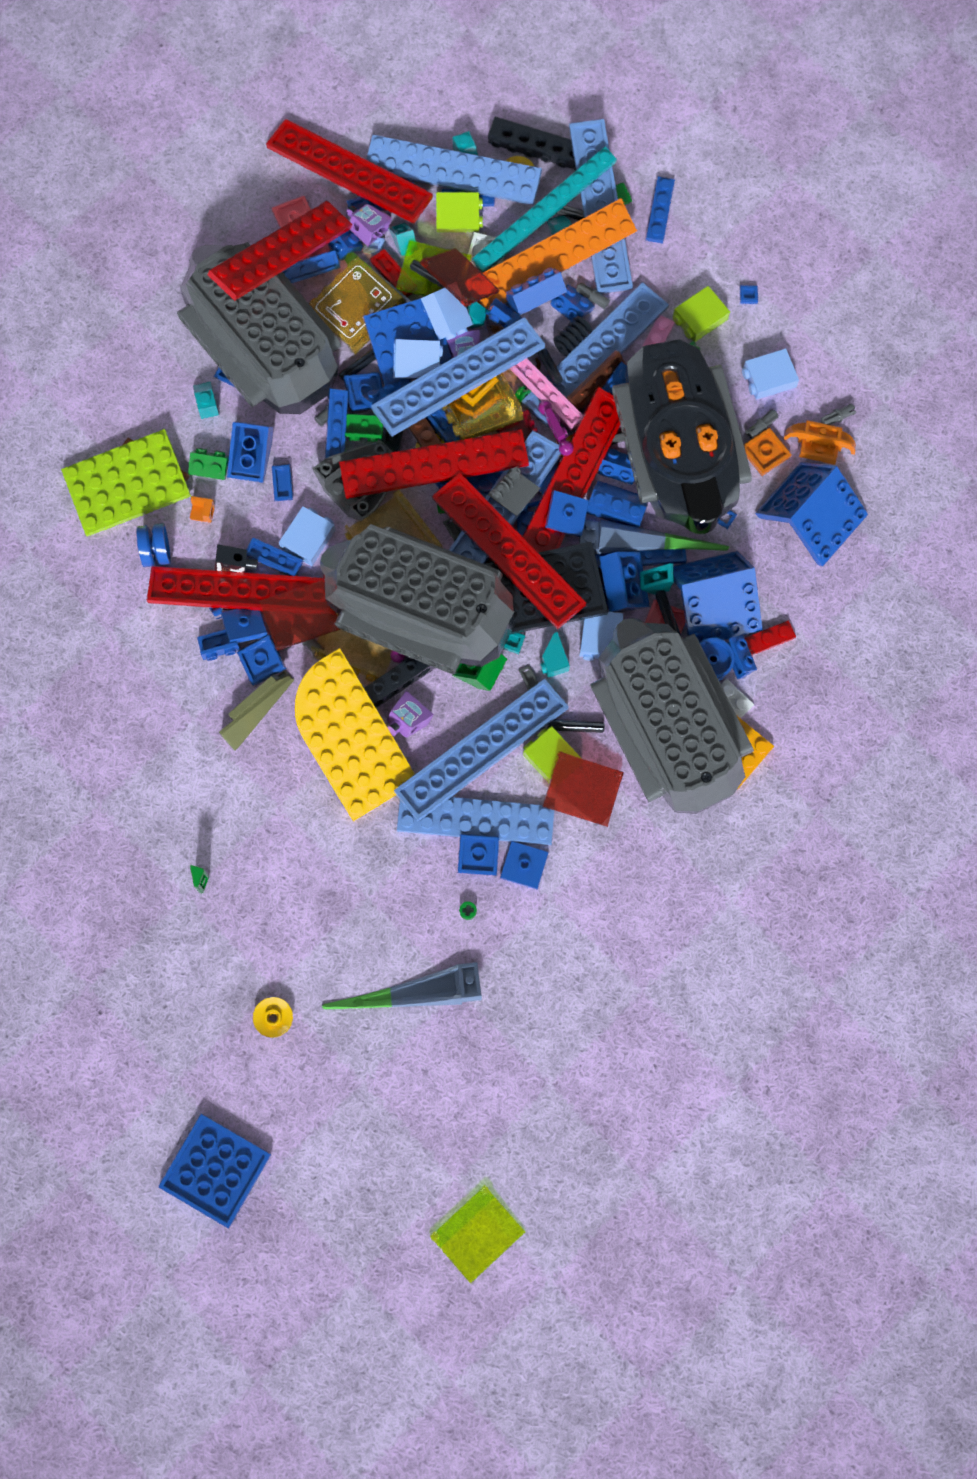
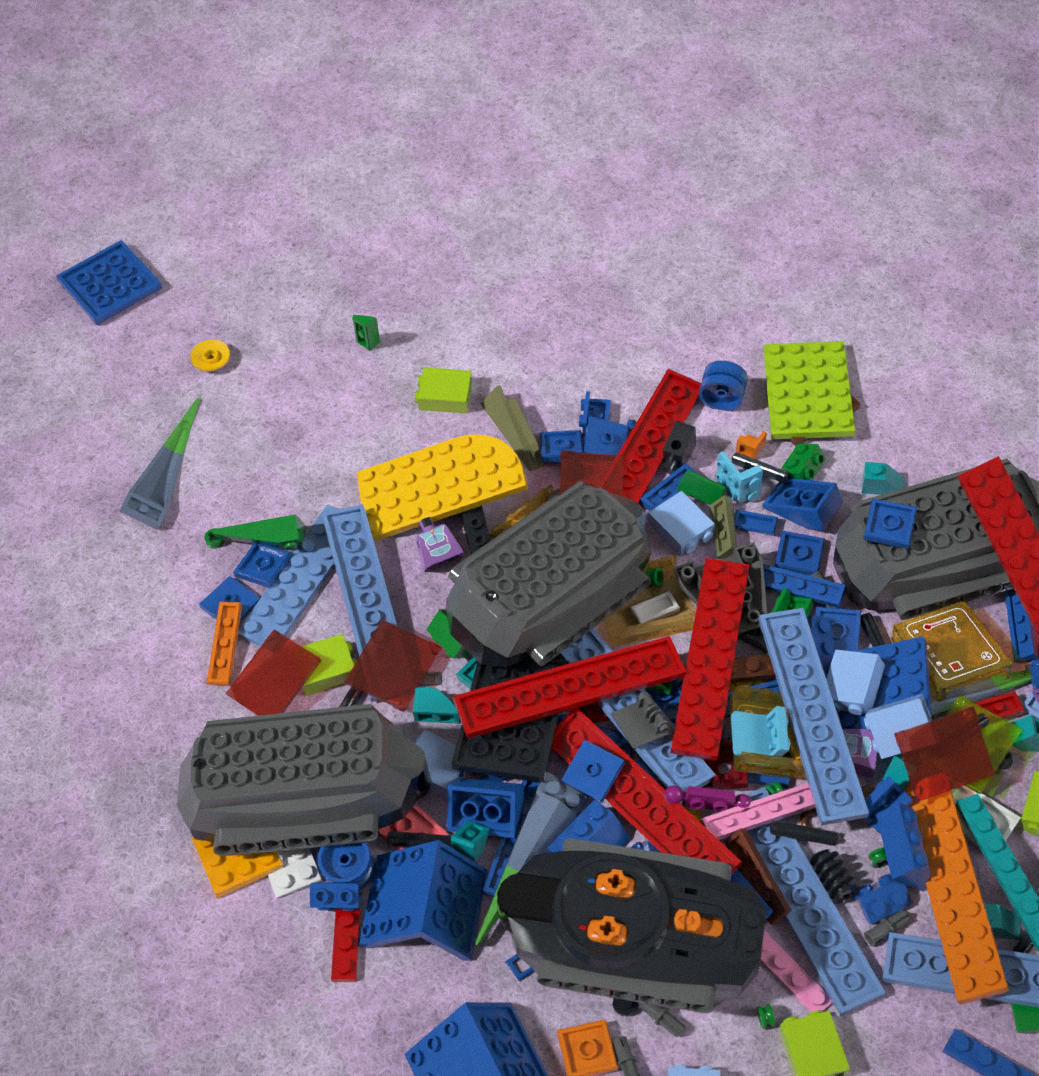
camera: 120 degrees right, 20 degrees down
(225, 494) = (768, 470): none -> black axle
(236, 783) = (444, 390): none -> lime brick
(254, 505) = (739, 486): none -> medium azure bracket
(267, 525) = (700, 487): none -> green slope
(286, 348) = (890, 523): none -> blue plate
(292, 504) = (724, 527): none -> olive plate
(299, 441) = (799, 553): none -> blue tile
(392, 521) = (655, 608): none -> white tile
(450, 850) = (276, 532): none -> green wedge
(490, 404) = (760, 732): none -> medium azure bracket
(534, 701) = (393, 665): none -> clear red piece
(543, 312) = (878, 857): none -> green bush
(566, 847) = (224, 644): none -> orange tile

